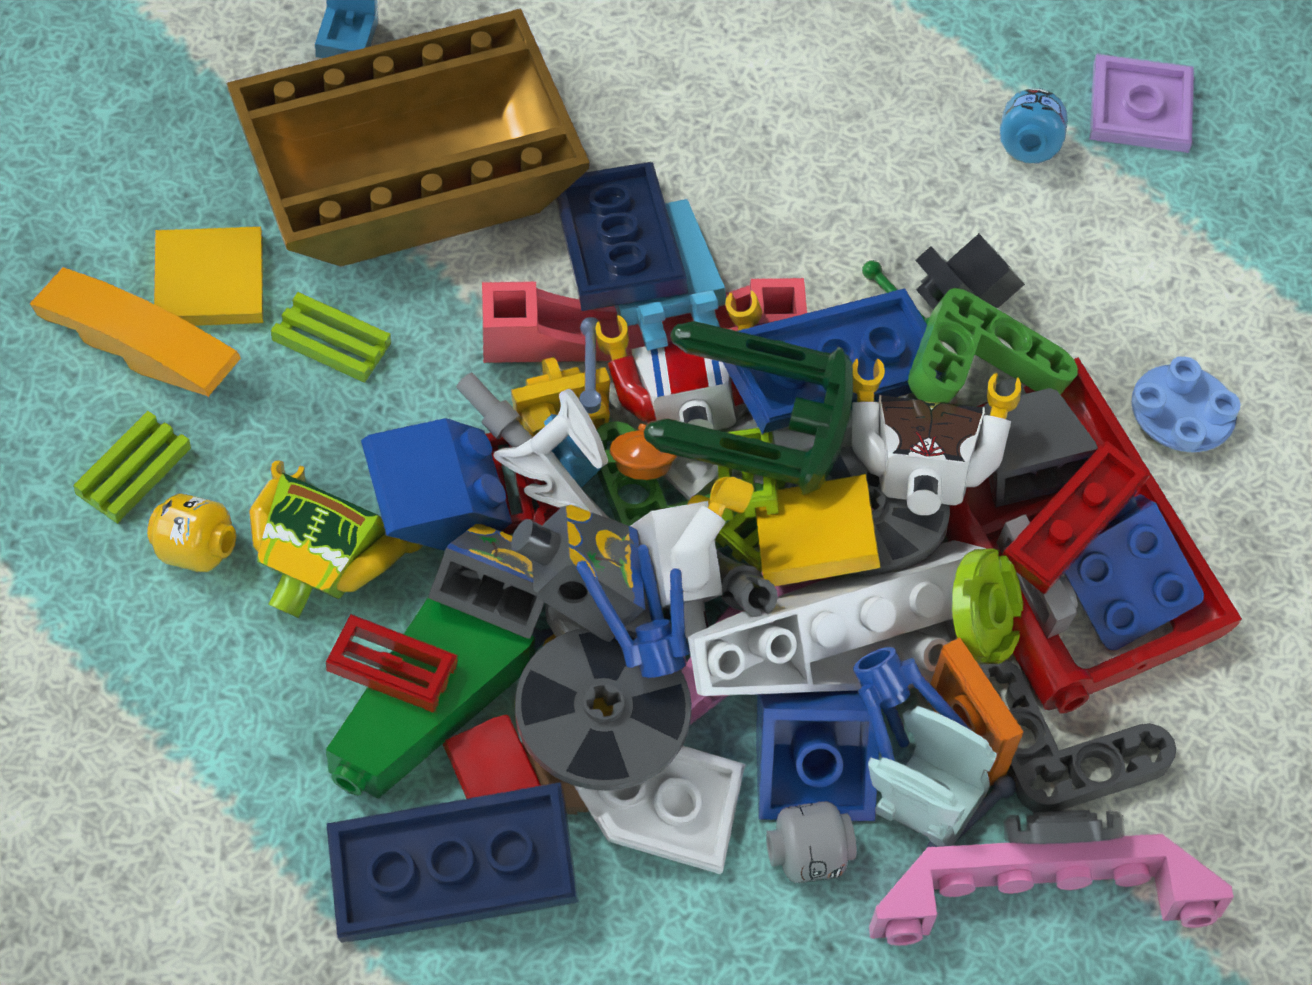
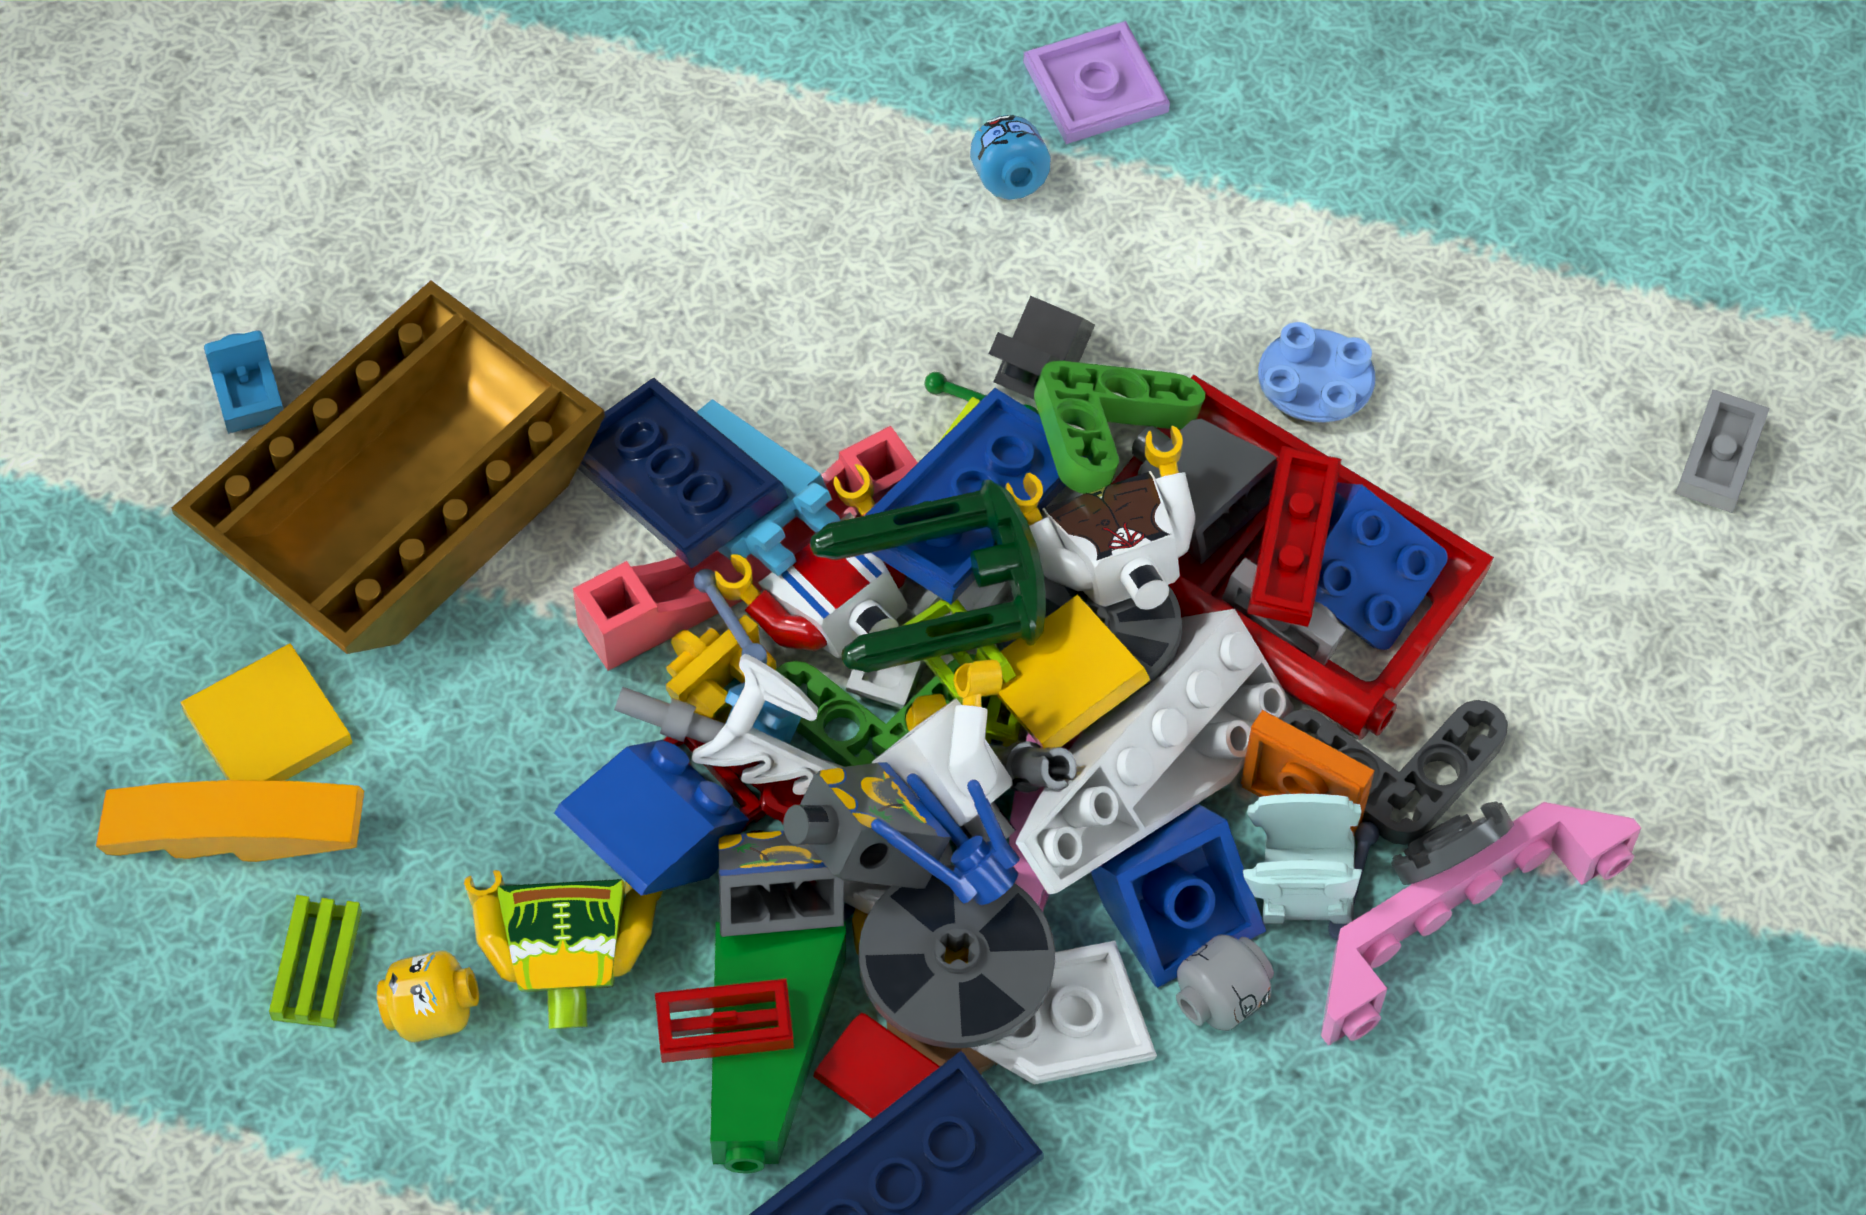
camera: 25 degrees left, 0 degrees up
(306, 305) = (435, 701): lime tile -> none
(639, 458) = (833, 685): orange hat -> none
(885, 686) = (1218, 793): blue plant -> none
(984, 604) = (1260, 663): lime tile -> none

